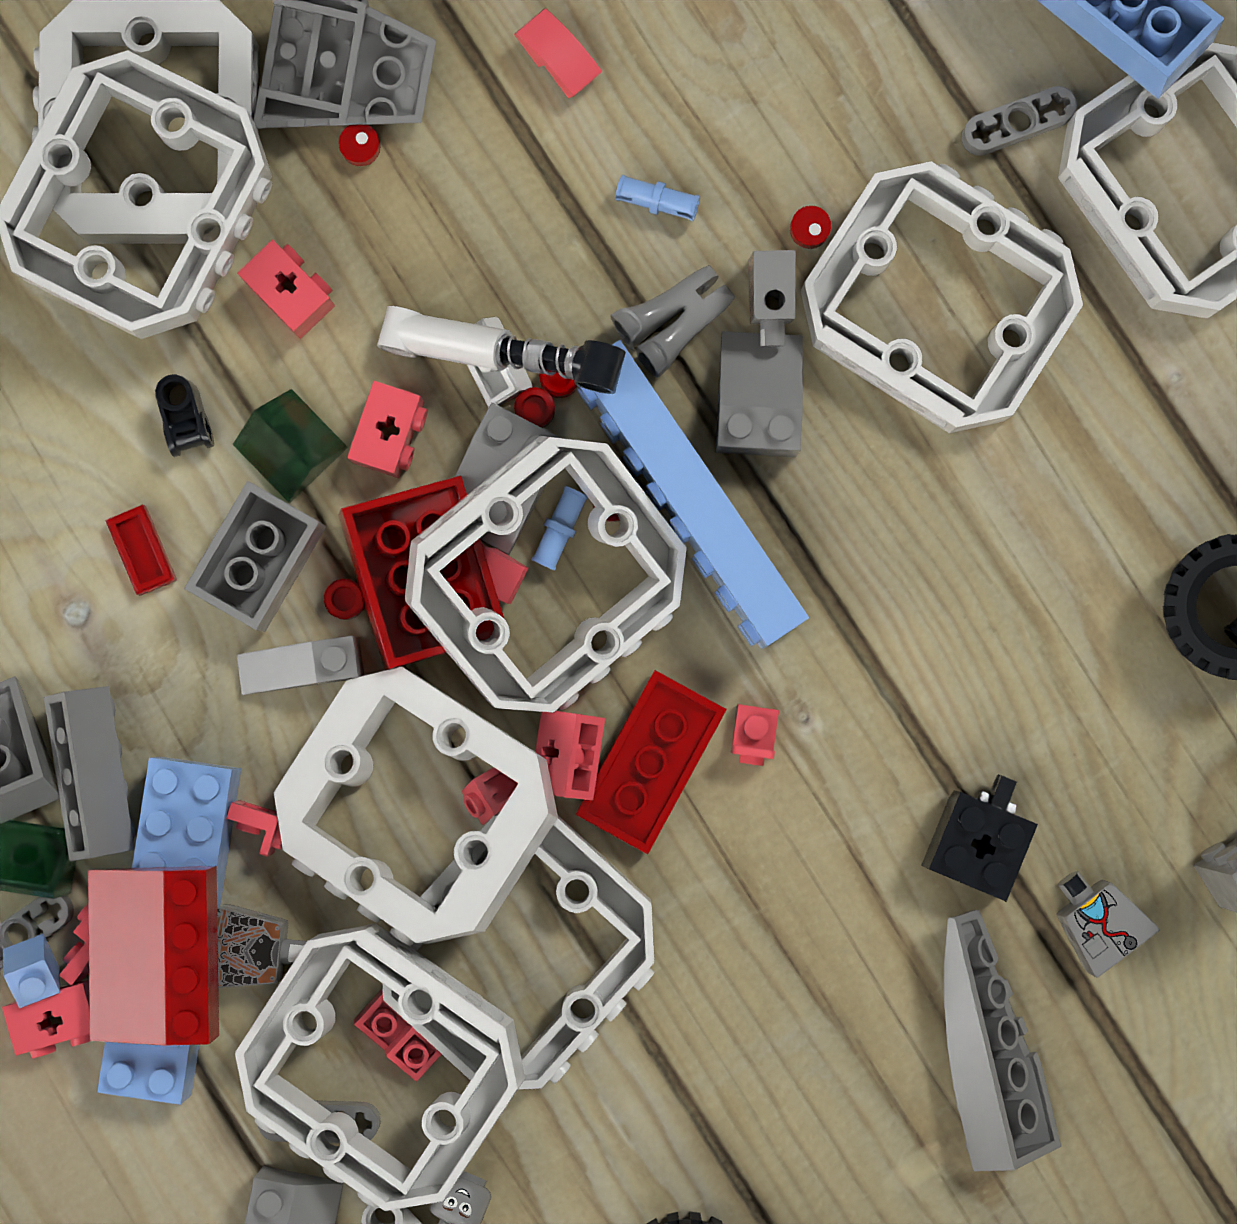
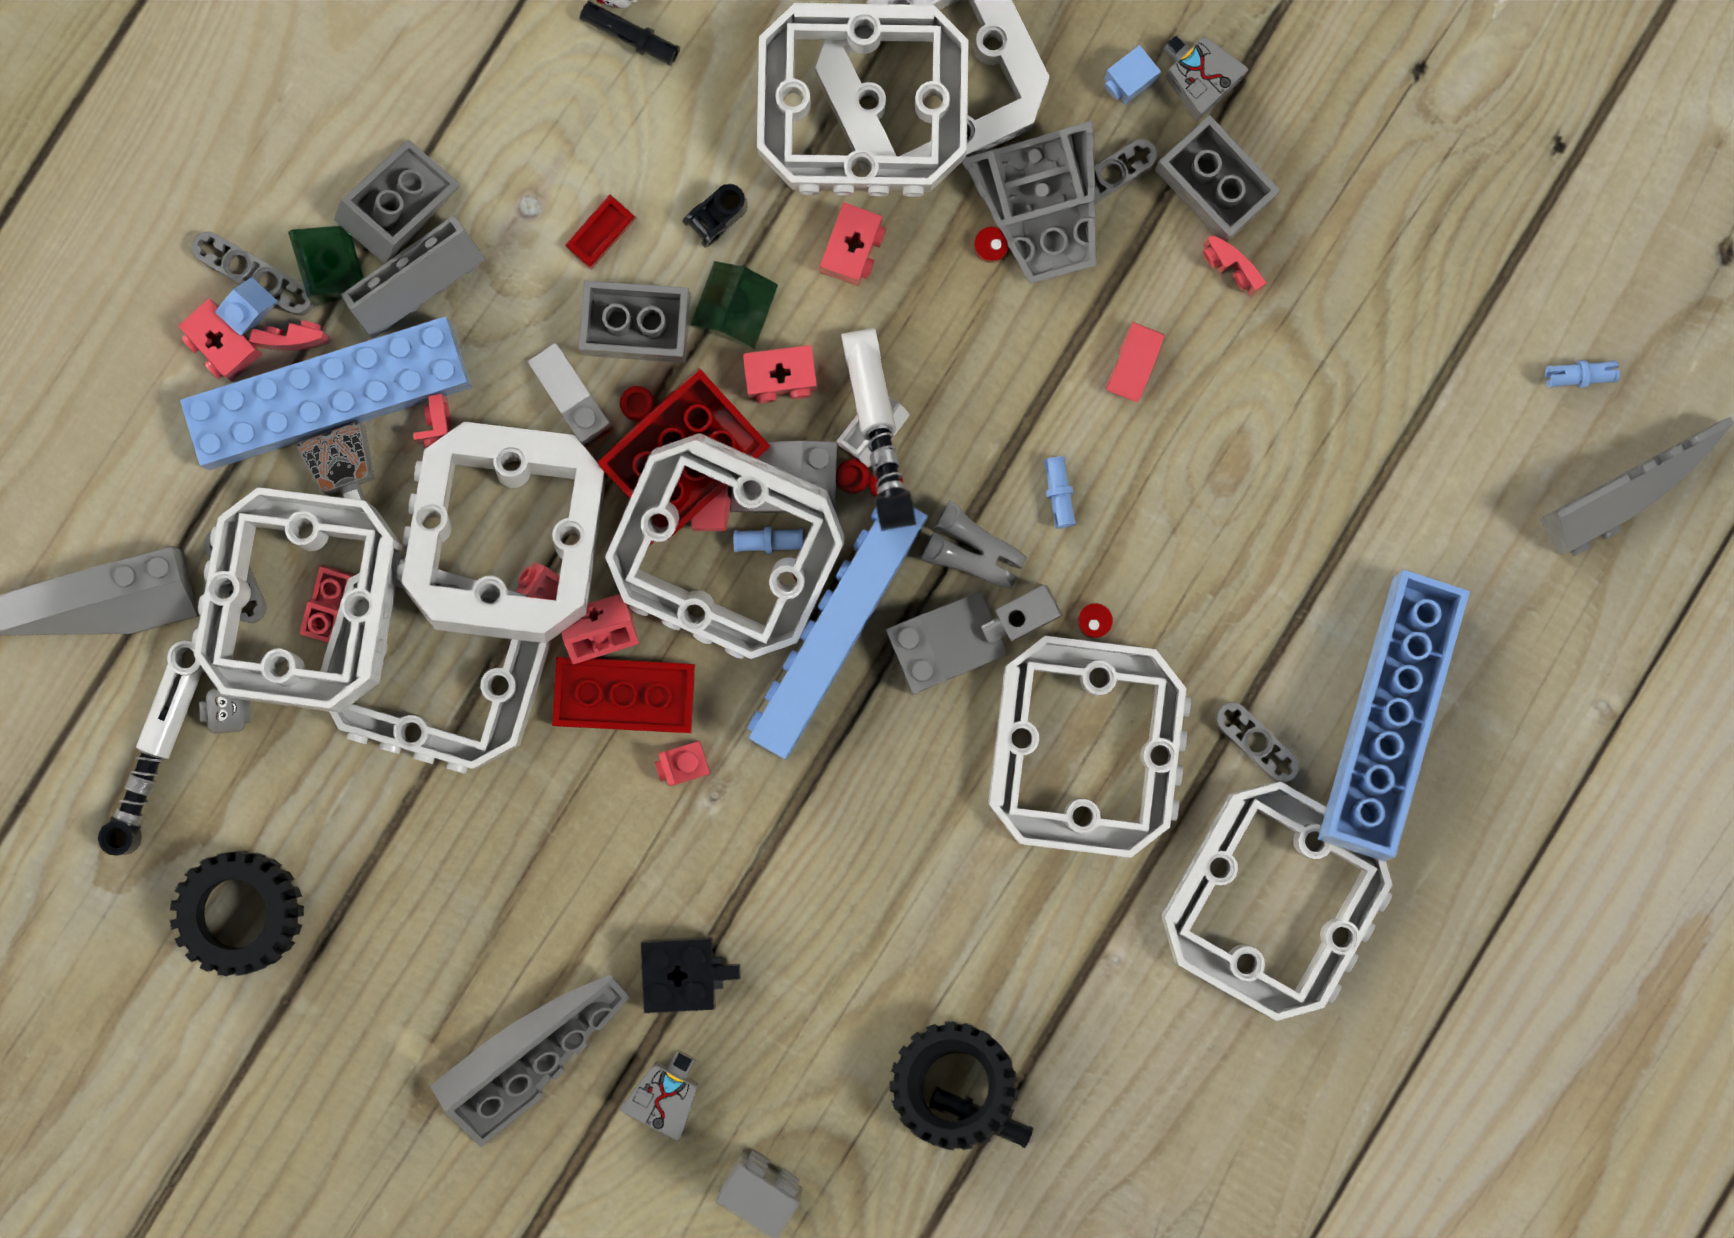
camera: 65 degrees right, 0 degrees up
(153, 955) = (300, 392): slope -> none

